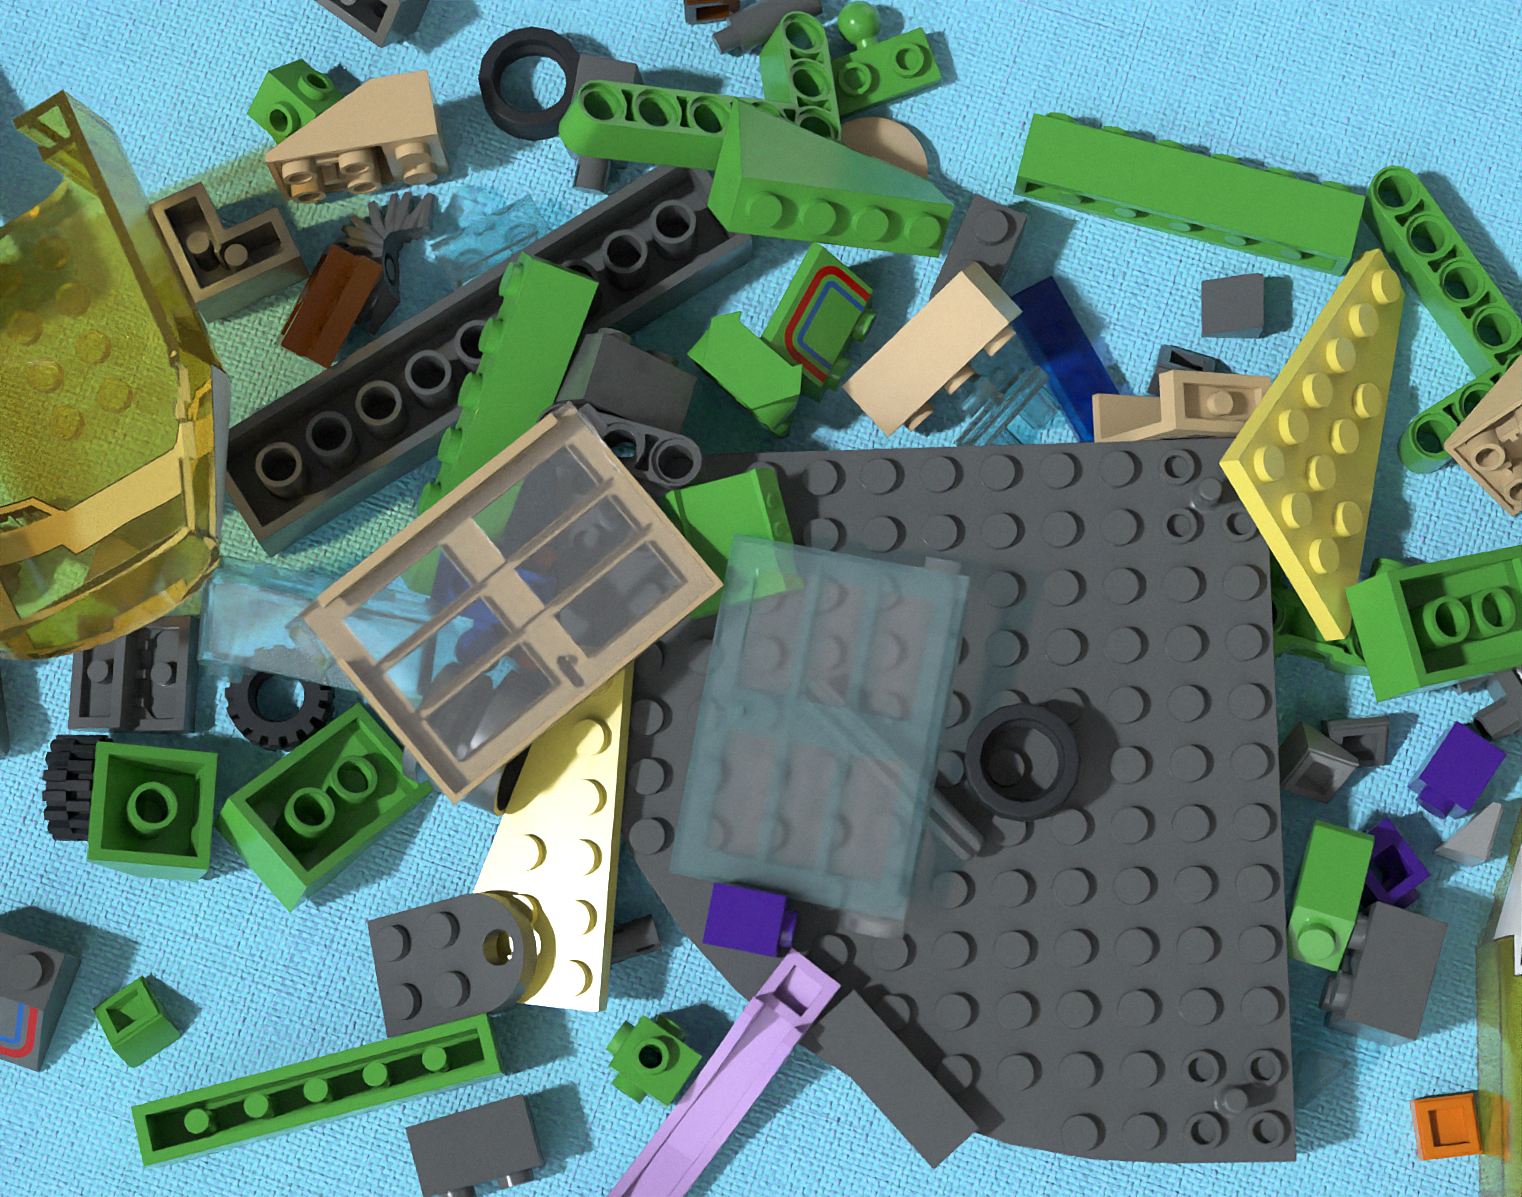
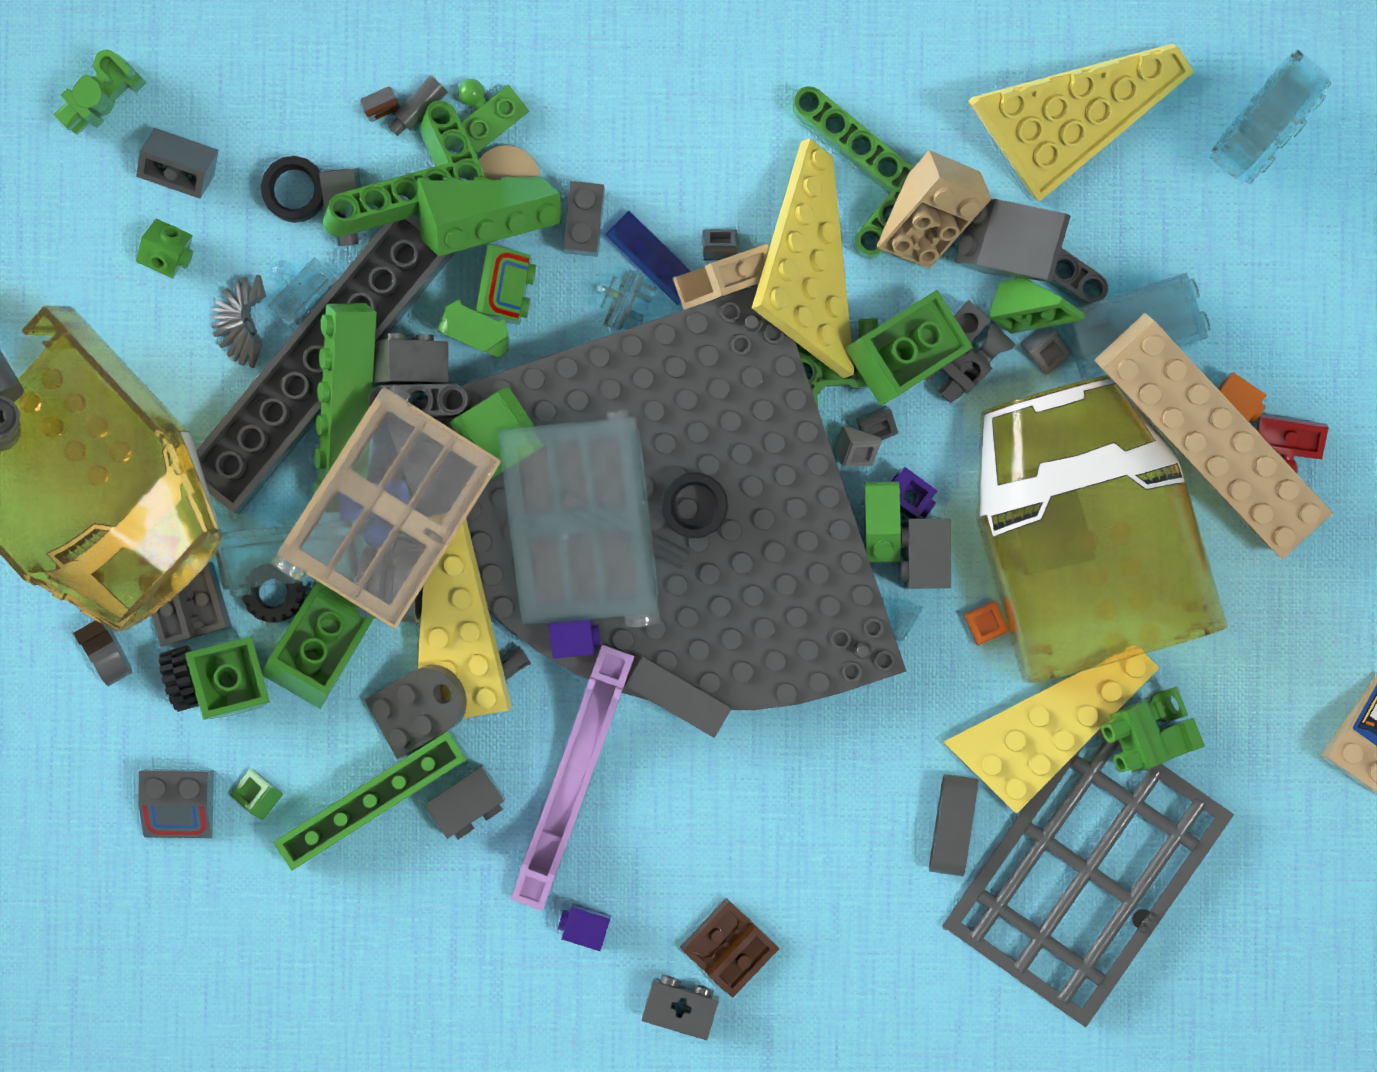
camera: 20 degrees left, 10 degrees up
(232, 264) = (153, 357): flat silver brick -> none
(328, 305) = (223, 362): reddish brown slope -> none
(367, 139) = (213, 255): tan slope -> none
(659, 1083) = (558, 725): bright green brick -> none
(934, 351) = (575, 282): tan brick -> none
(1189, 193) = (692, 136): bright green brick -> none
(1233, 307) = (736, 195): dark grey slope -> none
(1455, 772) = (936, 427): dark purple brick -> none
(1474, 839) = (956, 461): light grey slope -> none

